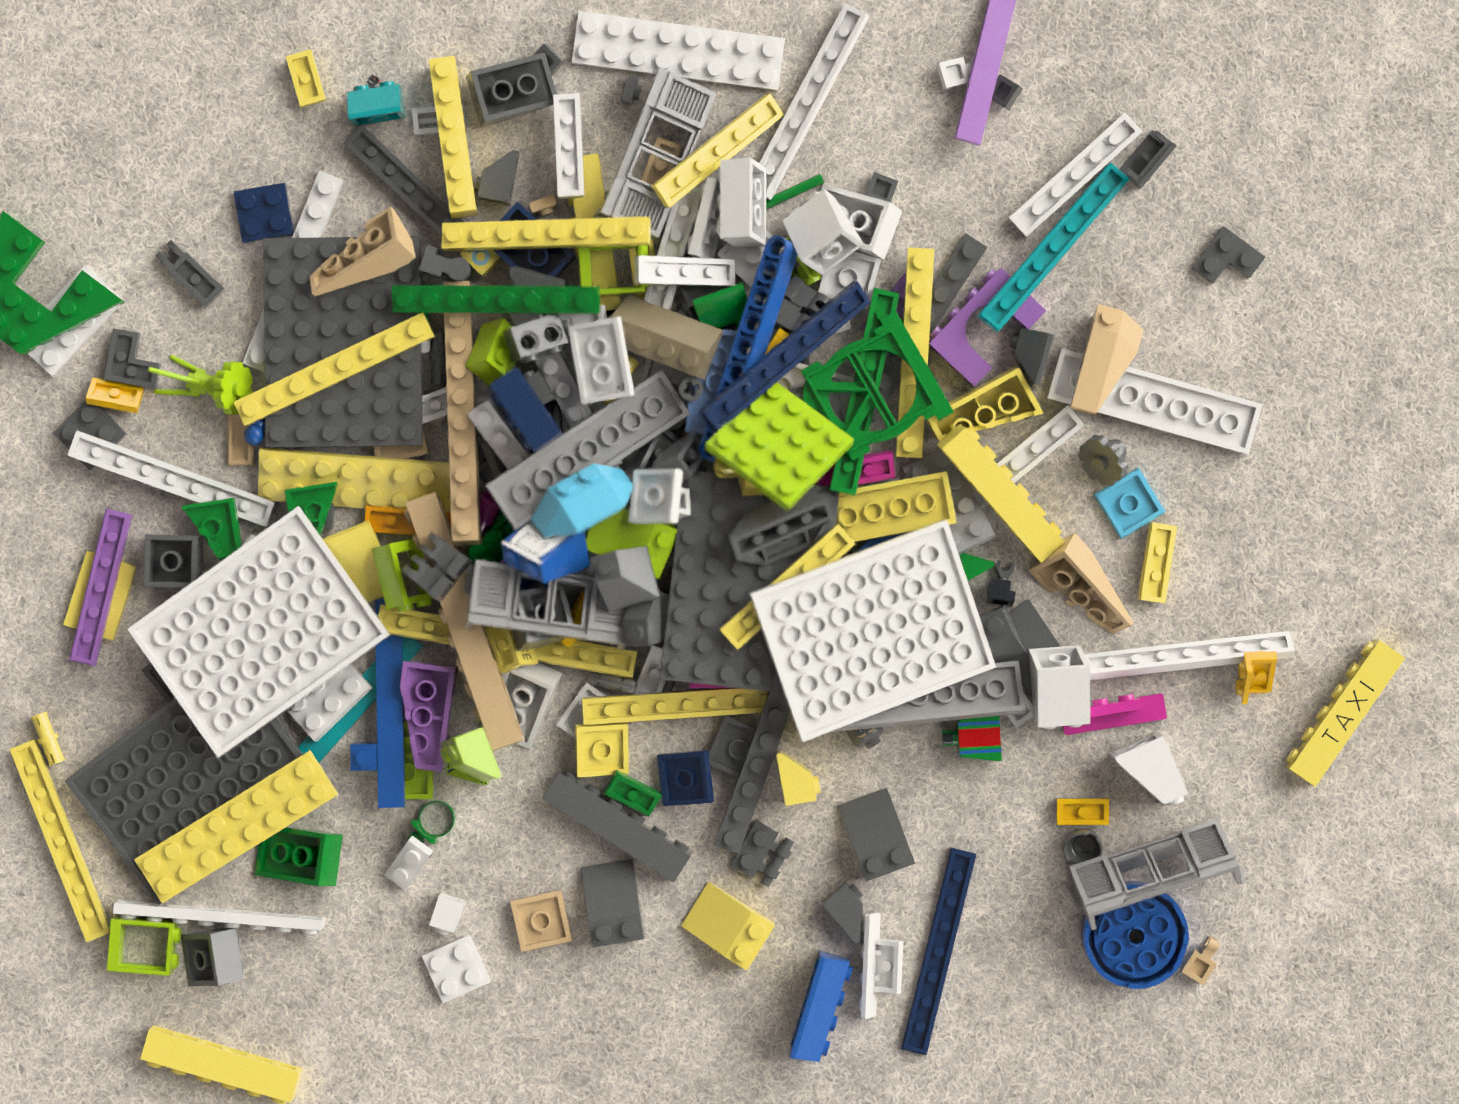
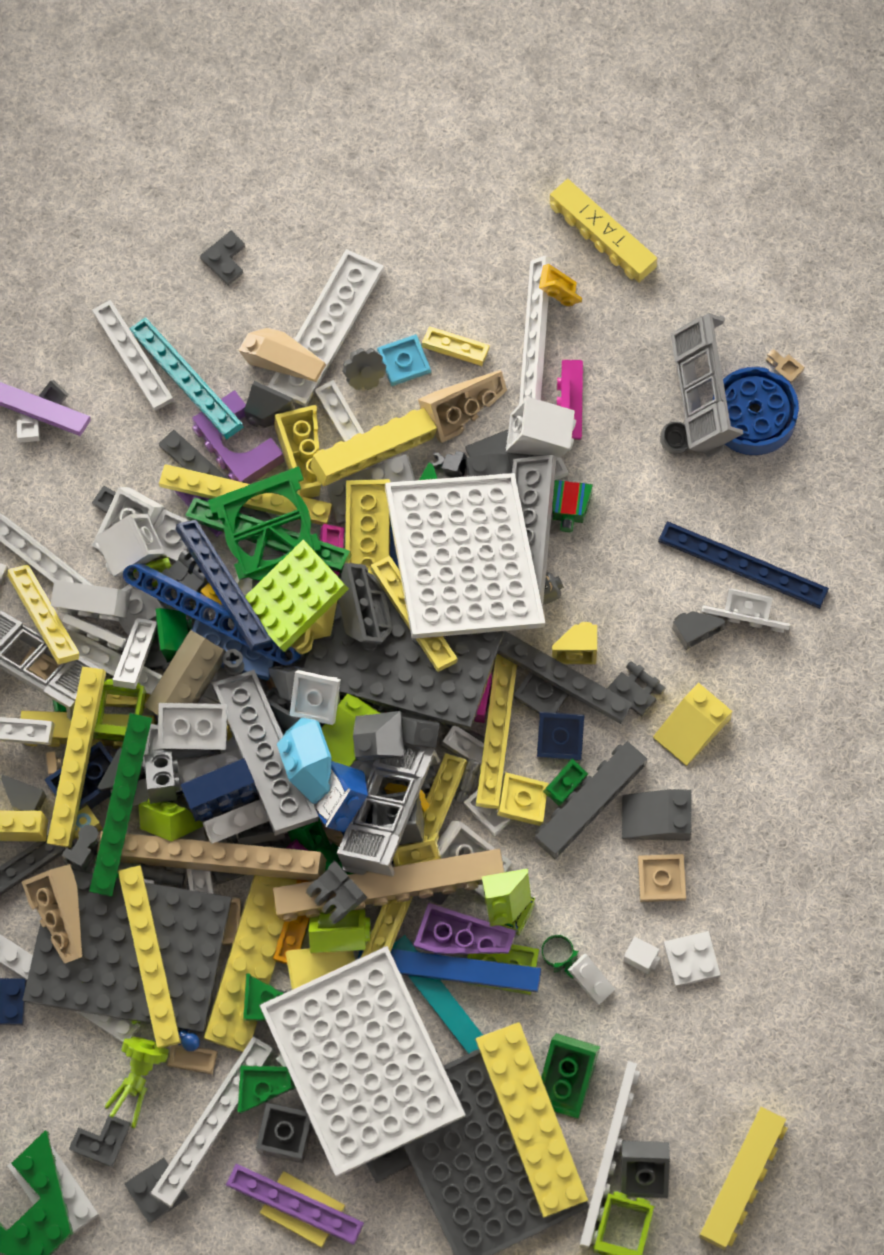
camera: 80 degrees left, 20 degrees down
(115, 395) = (128, 1159): yellow plate -> none
(192, 275) = (38, 1073): dark grey hinge -> none
(330, 702) = (439, 1021): white plate -> none
(363, 756) = (490, 999): blue brick -> none
(794, 191) = (93, 574): green piece -> none
(819, 1007) = (772, 662): slope -> none
(876, 834) = (637, 594): dark grey slope -> none
(1082, 811) = (646, 434): yellow plate -> none
(1147, 158) = (132, 300): dark grey hinge -> none
(1153, 768) = (621, 372): white slope -> none

